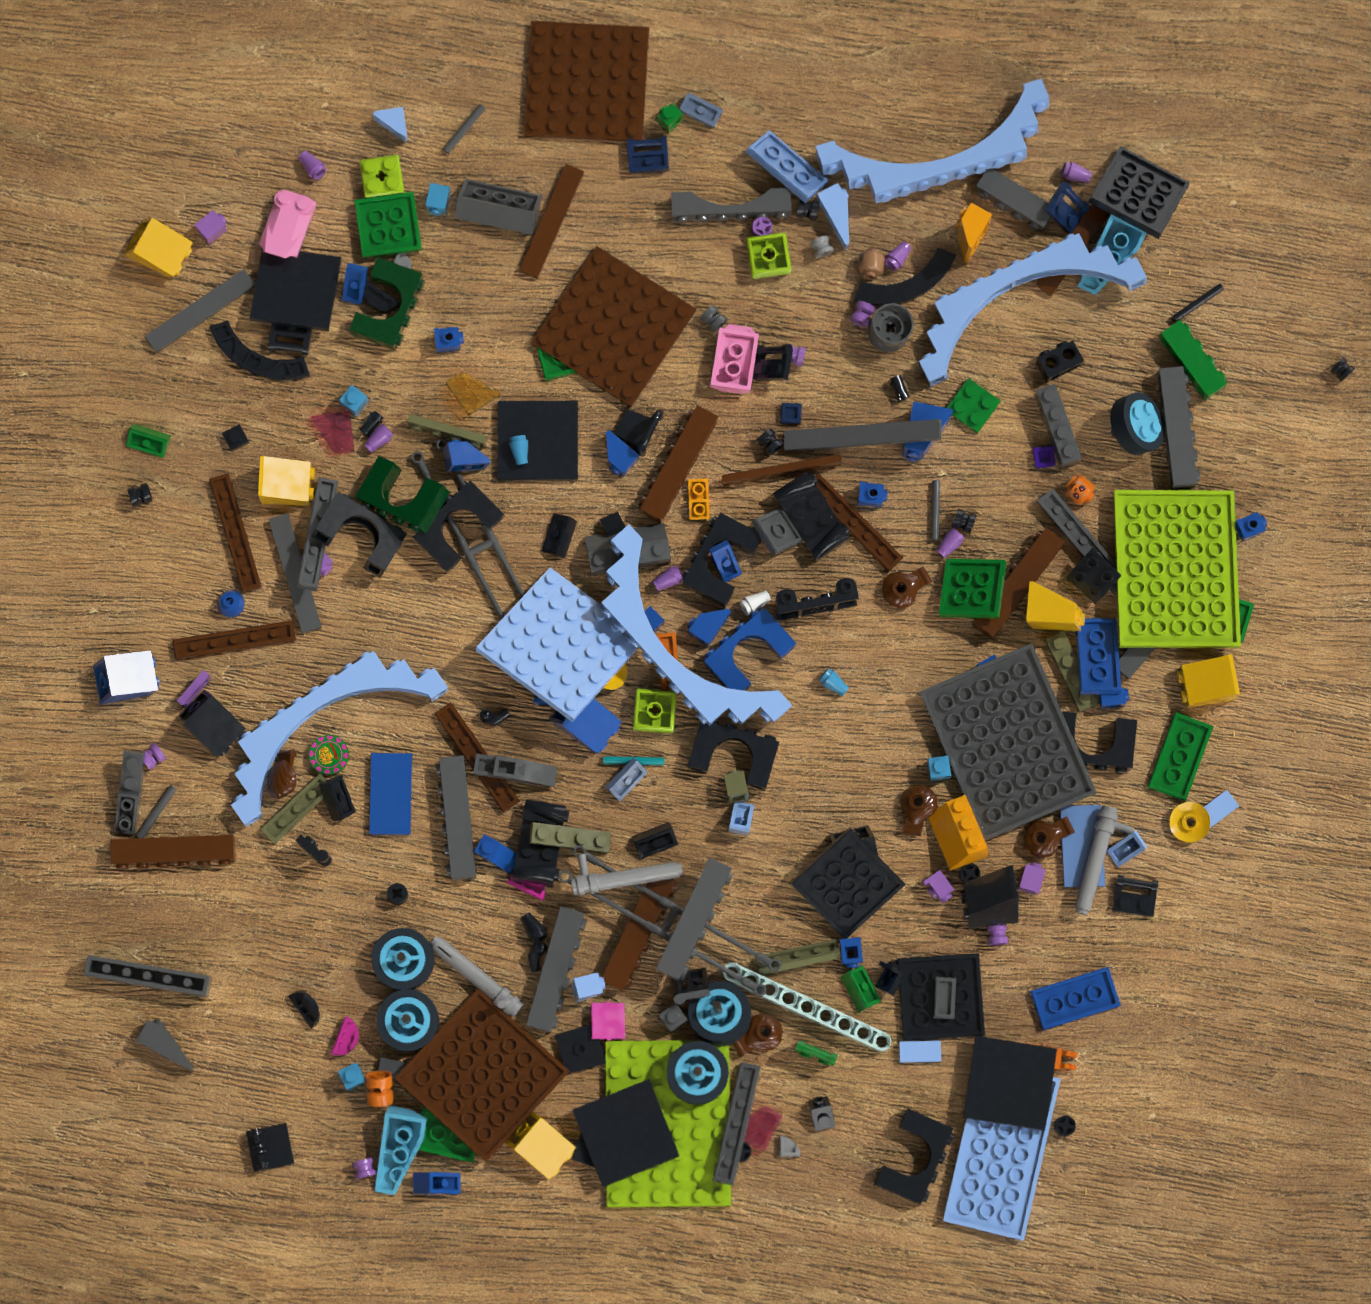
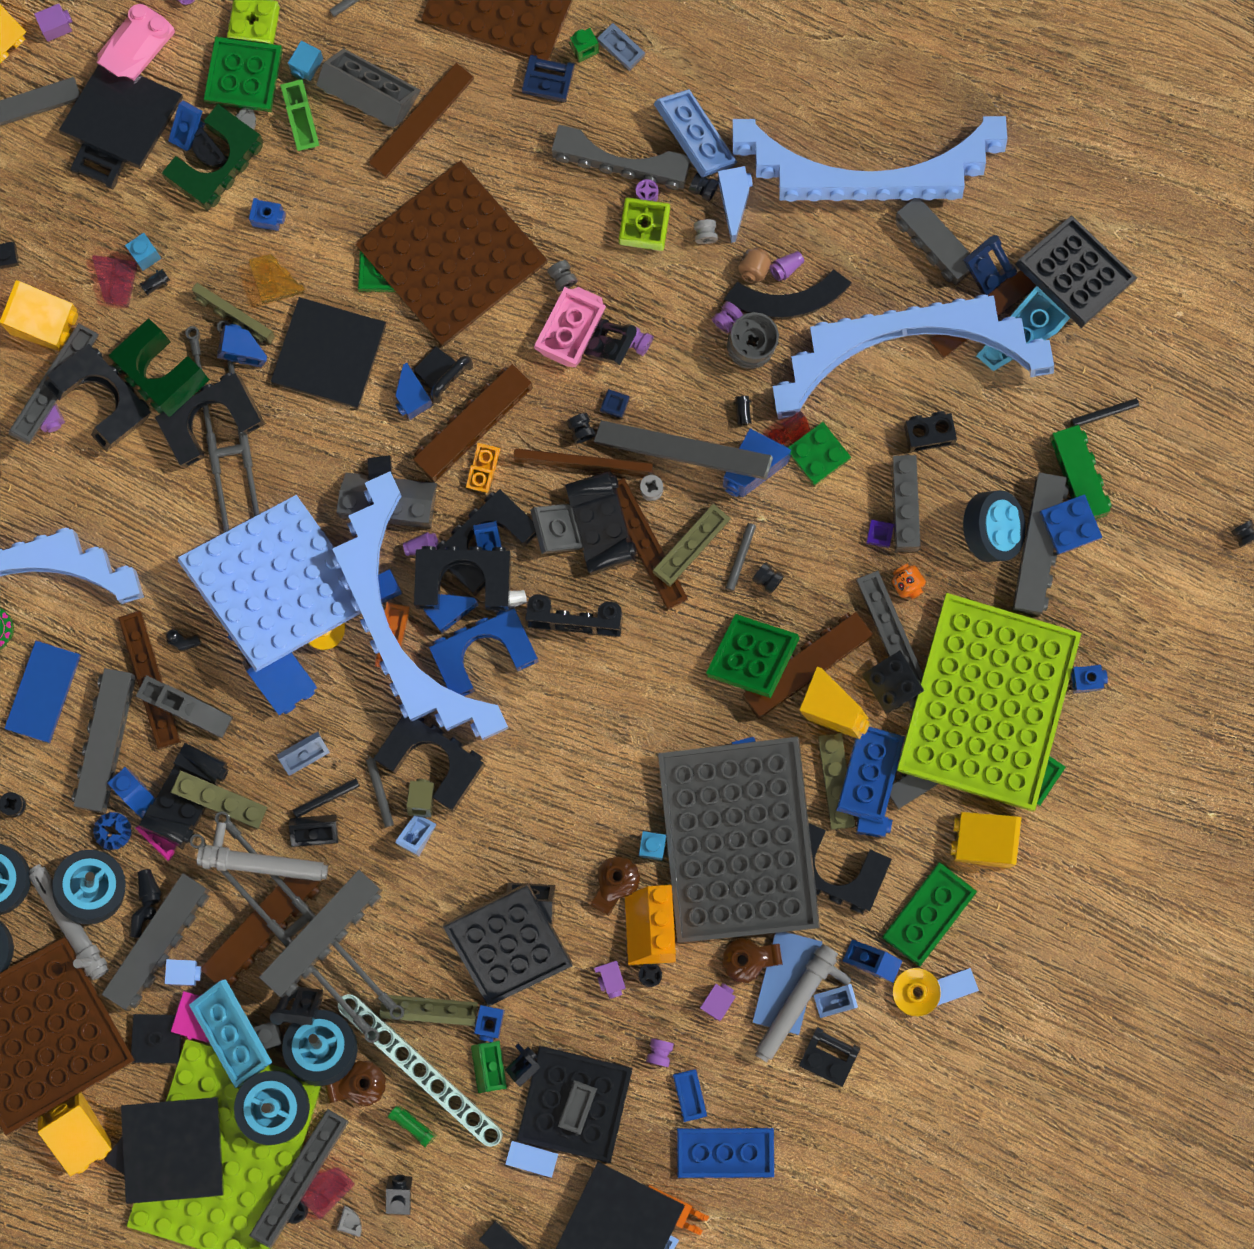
camera: 25 degrees right, 0 degrees up
(253, 362) = (52, 181): black tile -> none
(291, 563) = (20, 390): dark grey tile -> none
(378, 438) = (157, 300): medium lavender cone -> none
(448, 246) = (300, 115): none -> bright green slope
(486, 941) = (89, 886): none -> wheel
(493, 898) = (115, 841): none -> blue gear
(519, 449) = (303, 355): dark azure cone -> none
(559, 535) = (318, 463): black slope -> none
(618, 760) = (327, 737): teal bar -> none
(643, 1023) = (230, 1033): none -> medium azure plate
(645, 701) = (353, 673): lime brick -> none
(656, 810) = (325, 798): none -> black bar
(699, 792) = (379, 792): none -> dark grey bar
(736, 576) = (433, 564): none -> black arch
(833, 682) = (566, 714): dark azure cone -> none
(844, 479) = (650, 492): none -> light grey wheel
(866, 499) = (666, 522): blue brick -> none
(892, 512) = (691, 545): none -> olive plate
(907, 583) = (685, 630): reddish brown animal -> none
(945, 392) = (792, 429): none -> clear red plate
(950, 542) = (745, 597): medium lavender cone -> none
(971, 229) = (877, 258): light orange slope -> none
(991, 899) = (662, 1012): black slope -> none
(1032, 961) = (690, 1095): none -> blue tile
(1074, 172) = (1012, 230): medium lavender cone -> none
(1146, 807) = (872, 960): none -> blue slope
(1199, 404) = (1071, 524): none -> blue plate

